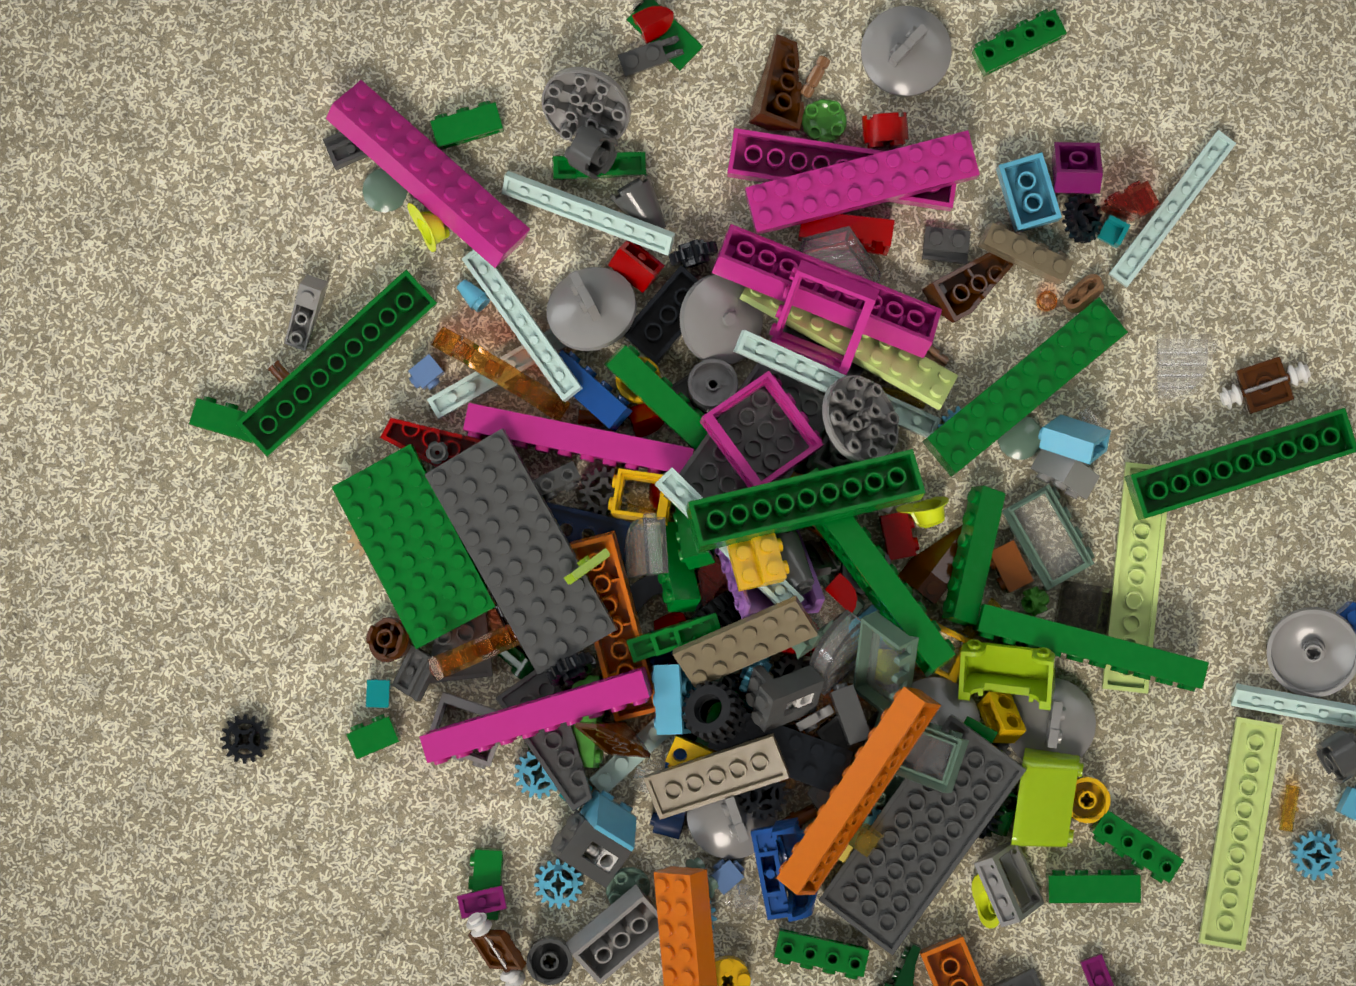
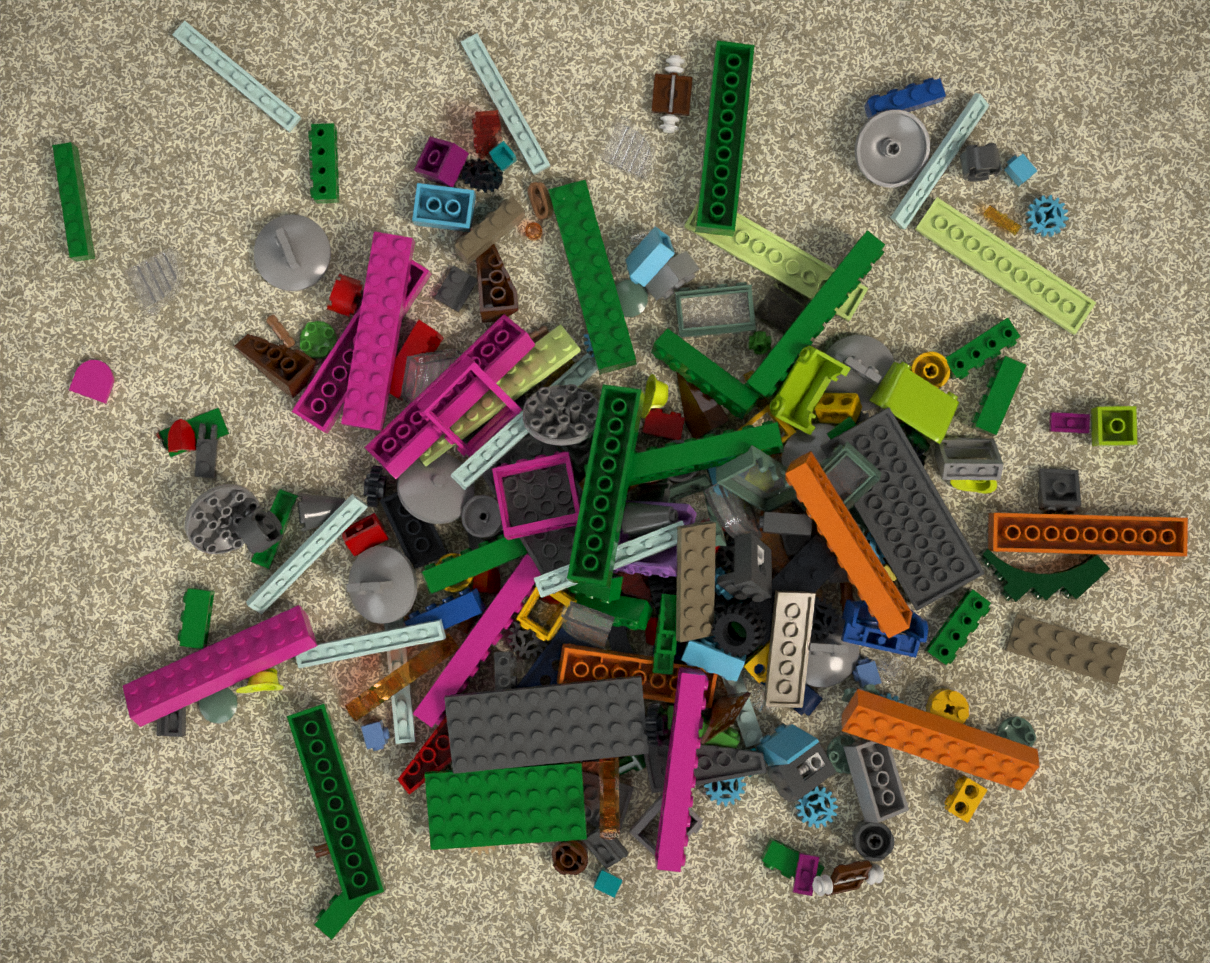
camera: 70 degrees left, 0 degrees up
(305, 311) = (285, 808): light grey slope -> none
(374, 736) = (640, 901): green brick -> none
(441, 447) = (440, 760): dark grey plate -> none
(474, 297) = (332, 671): medium azure cone -> none
(585, 565) = (580, 678): lime plate -> none
(758, 562) = (638, 544): yellow plate -> none
(809, 722) = (777, 557): light grey plate -> none
(843, 592) = (689, 487): red brick -> none
(866, 839) = (888, 554): clear yellow brick -> none
(1010, 567) = (725, 350): dark orange brick -> none

